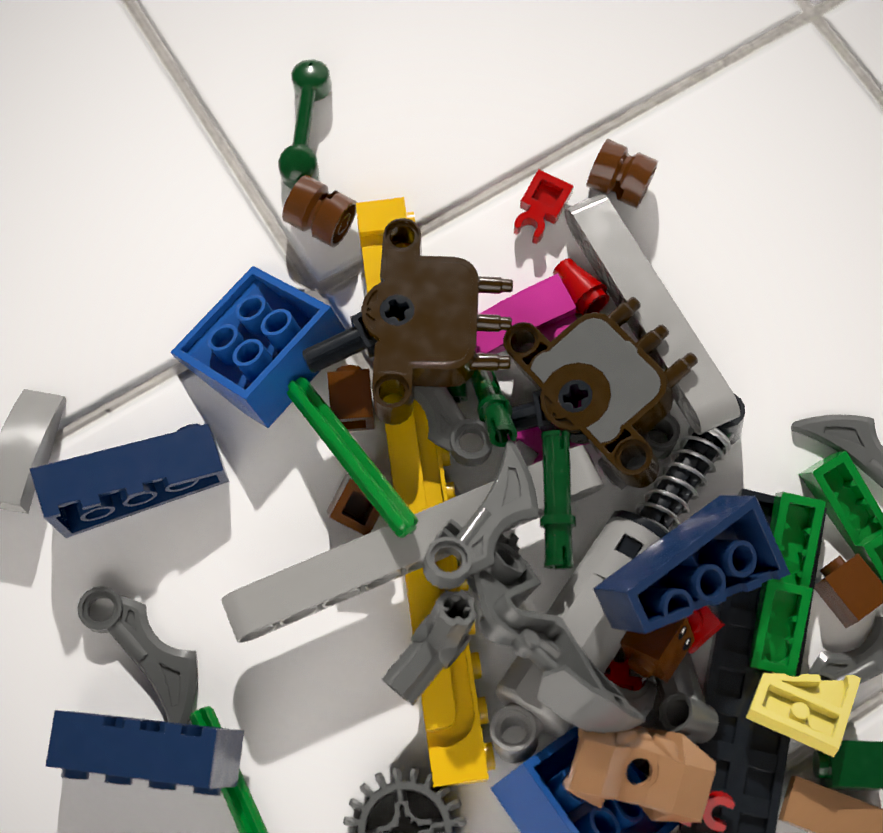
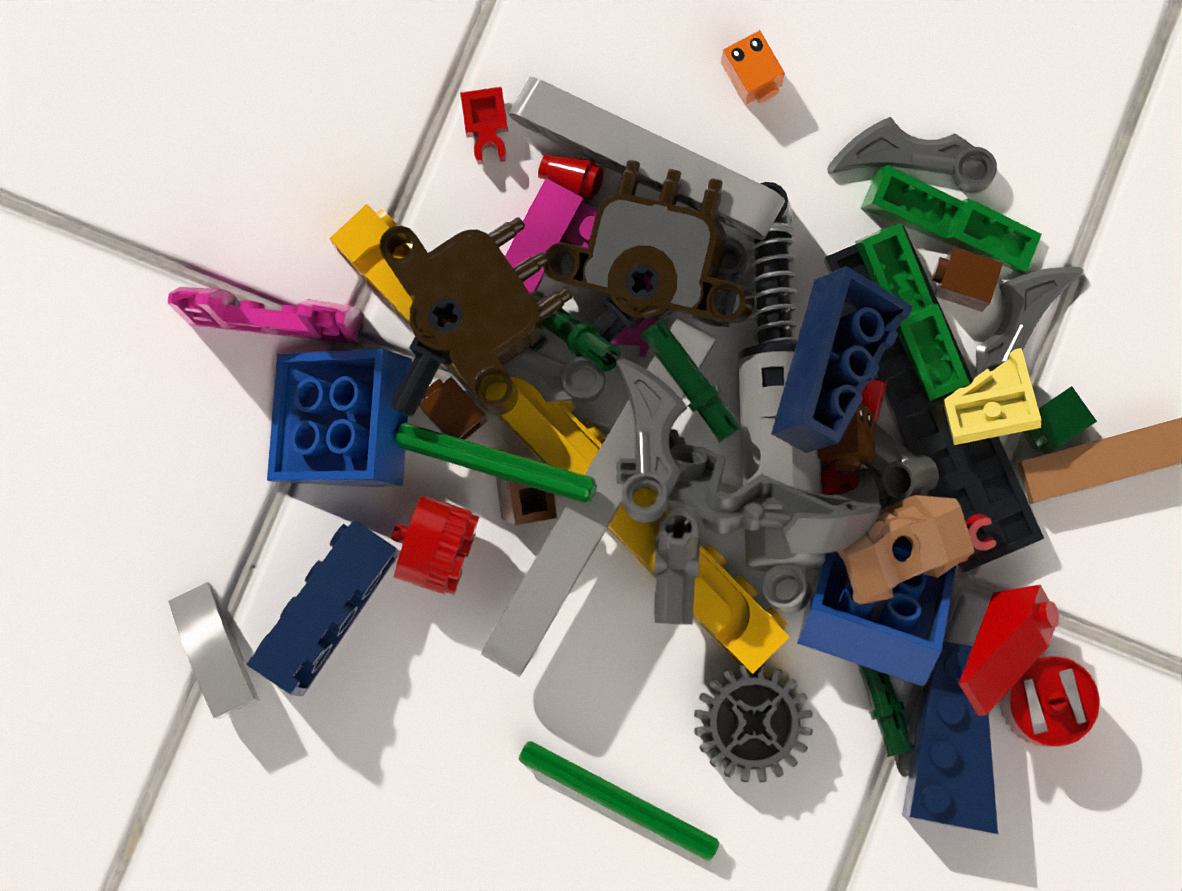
camera: 30 degrees left, 10 degrees up
(145, 750) = (508, 812): dark blue wedge -> none
(167, 668) = (470, 737): dark grey piece -> none
(254, 489) = (435, 545): none -> red piece
(289, 249) = (308, 320): none -> dark pink wedge
(310, 83) = (246, 233): dark green piece -> none
(315, 209) = (300, 266): reddish brown wheel -> none
(622, 173) = (535, 45): reddish brown wheel -> none
(785, 304) = (753, 69): none -> orange brick

